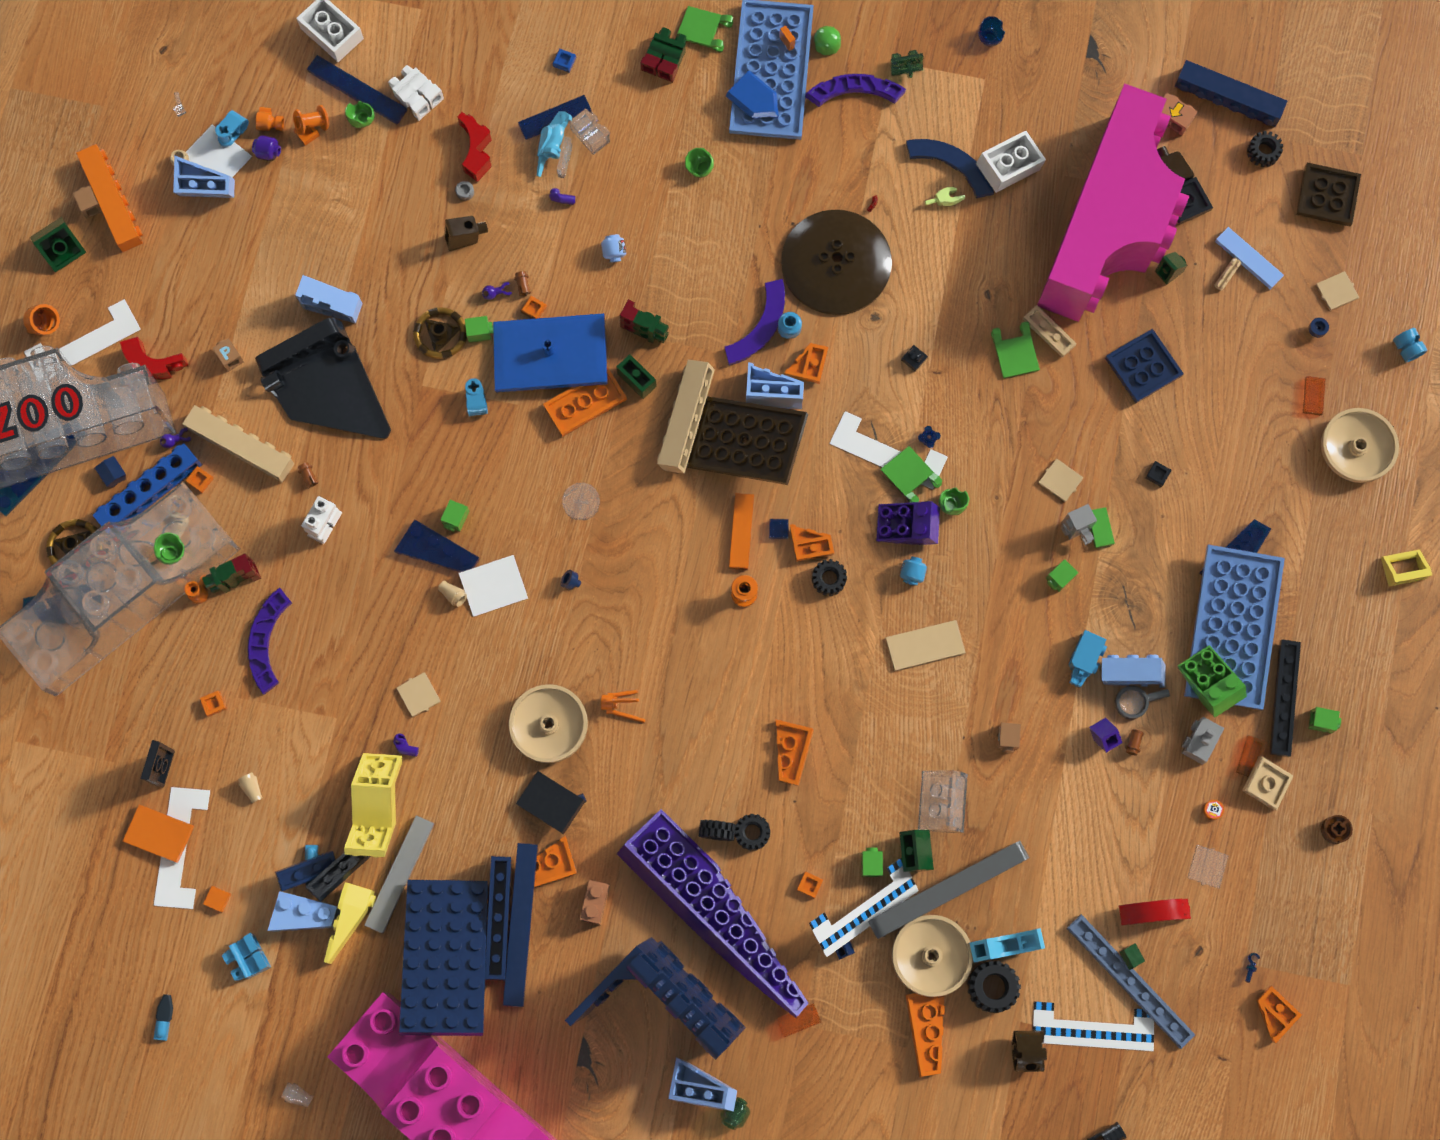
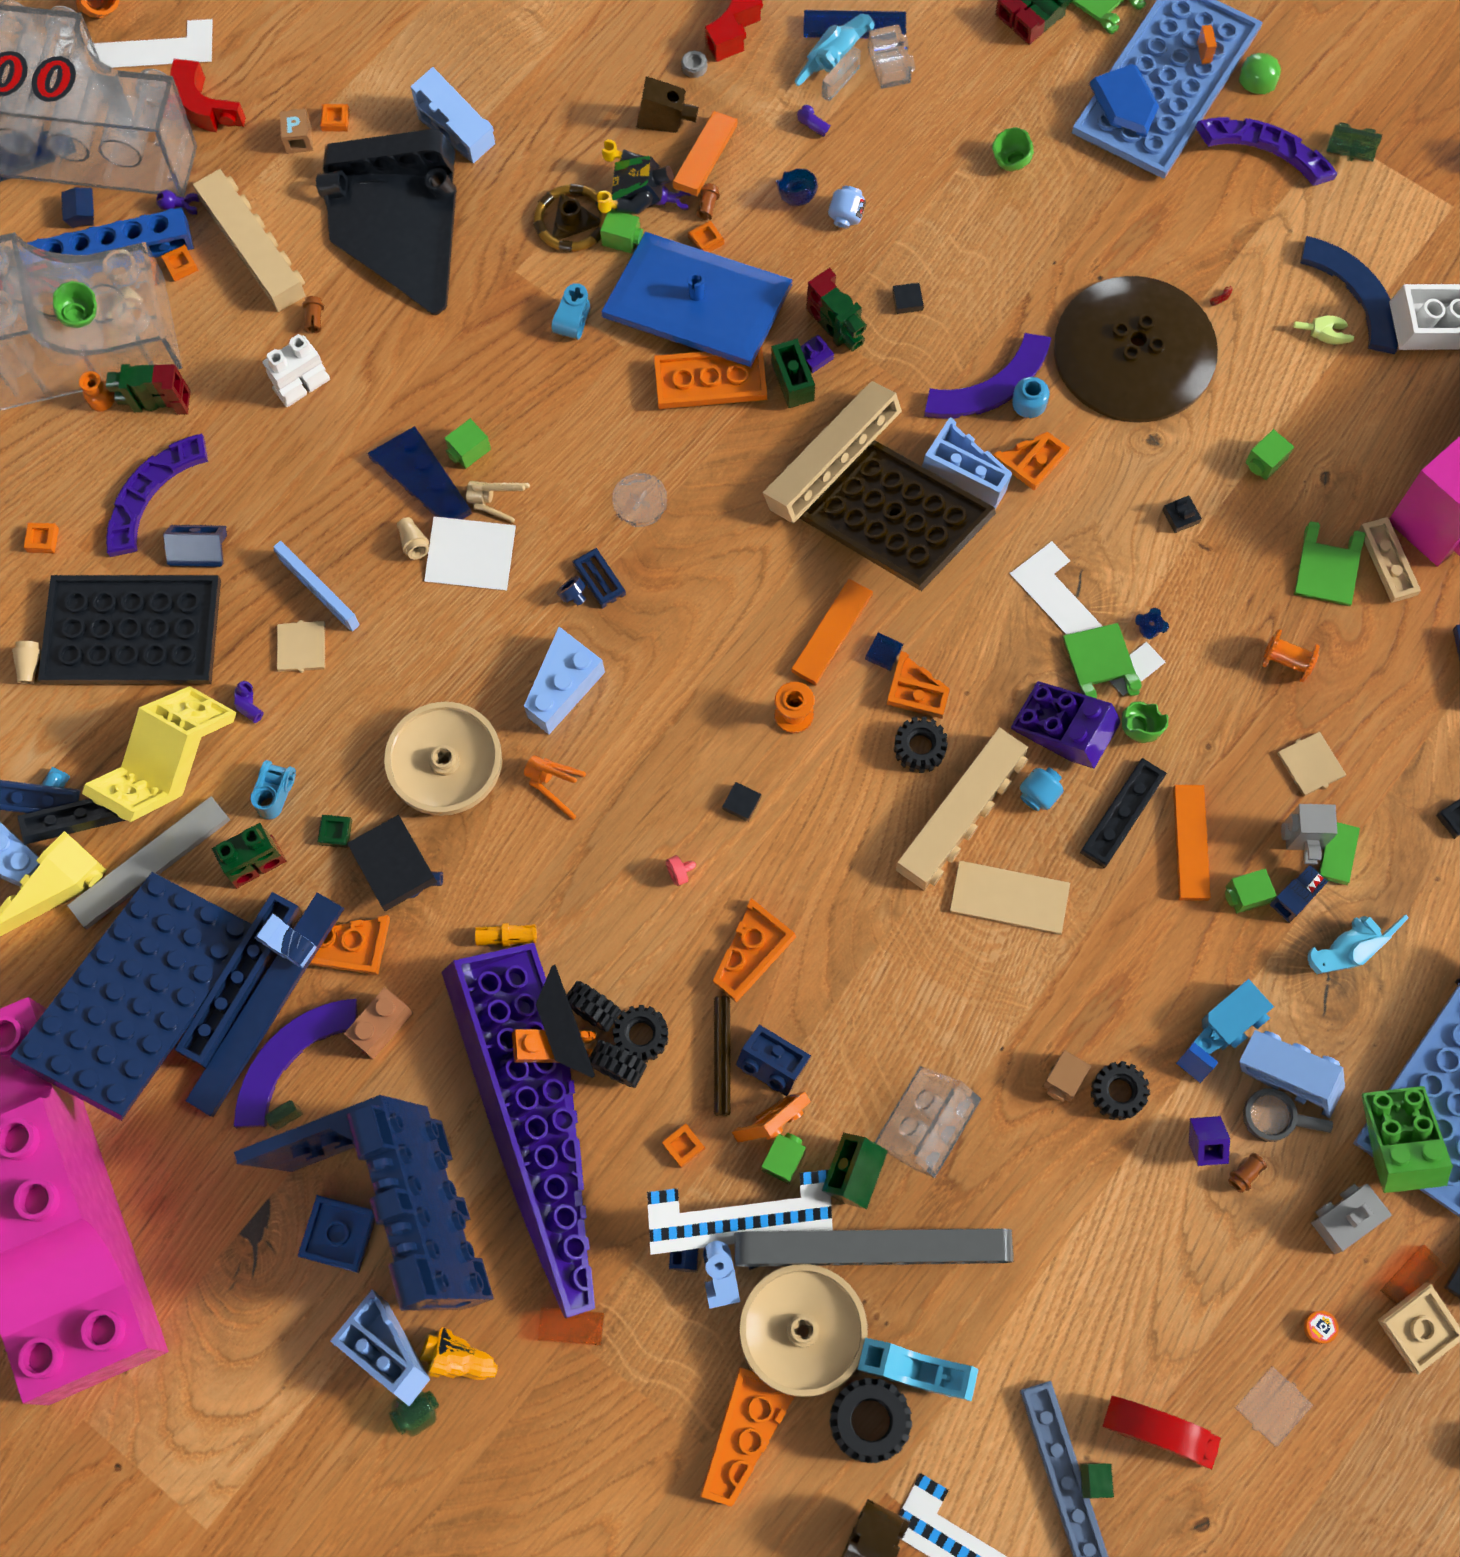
camera: 30 degrees right, 5 degrees down
(247, 332) = (334, 117): none -> orange tile
(305, 735) = (130, 629): none -> black plate
(316, 661) = (194, 545): none -> panel
(409, 652) = (316, 586): none -> light blue tile
(450, 789) = (272, 783): none -> dark azure piece
(461, 839) = (249, 847): none -> dark green hips
(472, 292) = (636, 181): none -> torso
(480, 542) = (482, 492): none -> tan plant
(503, 799) = (334, 831): none -> dark green tile
(505, 251) = (705, 153): none -> orange tile
(516, 882) = (285, 941): none -> leg
(544, 947) = (281, 1051): none -> dark purple tile
(567, 983) = (283, 1115): none -> clear green tile
(575, 248) = (797, 187): none -> clear blue hair
(595, 571) = (610, 596): none -> dark blue tile
(595, 640) = (562, 681): none -> light blue wedge
(635, 1036) = (337, 1234): none -> blue tile
(641, 812) = (506, 934): none -> light orange pin
(642, 354) = (816, 353): none -> dark purple tile
(681, 291) = (908, 298): none -> black tile
(704, 865) = (534, 1047): none -> orange hinge
(706, 851) = (561, 1025): none -> black sticker
(724, 723) = (677, 869): none -> coral tile
(740, 662) = (742, 801): none -> black tile
(742, 1071) = (454, 1357): none -> light orange rock
(749, 857) = (617, 1063): none -> black tyre
(806, 821) = (722, 1055): none -> dark brown axle
(836, 809) = (772, 1060): none -> dark blue bracket
(855, 843) = (771, 1120): none -> orange wing
(873, 605) = (961, 809): none -> tan brick
(874, 952) = (720, 1267): none -> light blue leg
(949, 297) = (1269, 454): none -> bright green brick
(967, 562) = (1123, 813): none -> black tile
(1014, 561) = (1191, 843): none -> orange tile
(1019, 419) = (1291, 655): none -> orange hose
(1036, 740) = (1120, 1072): none -> black tyre
(1078, 692) = (1197, 1062): none -> blue tile
(1089, 563) = (1298, 893): none -> dark blue leg
(1134, 581) = (1353, 946): none -> medium azure animal

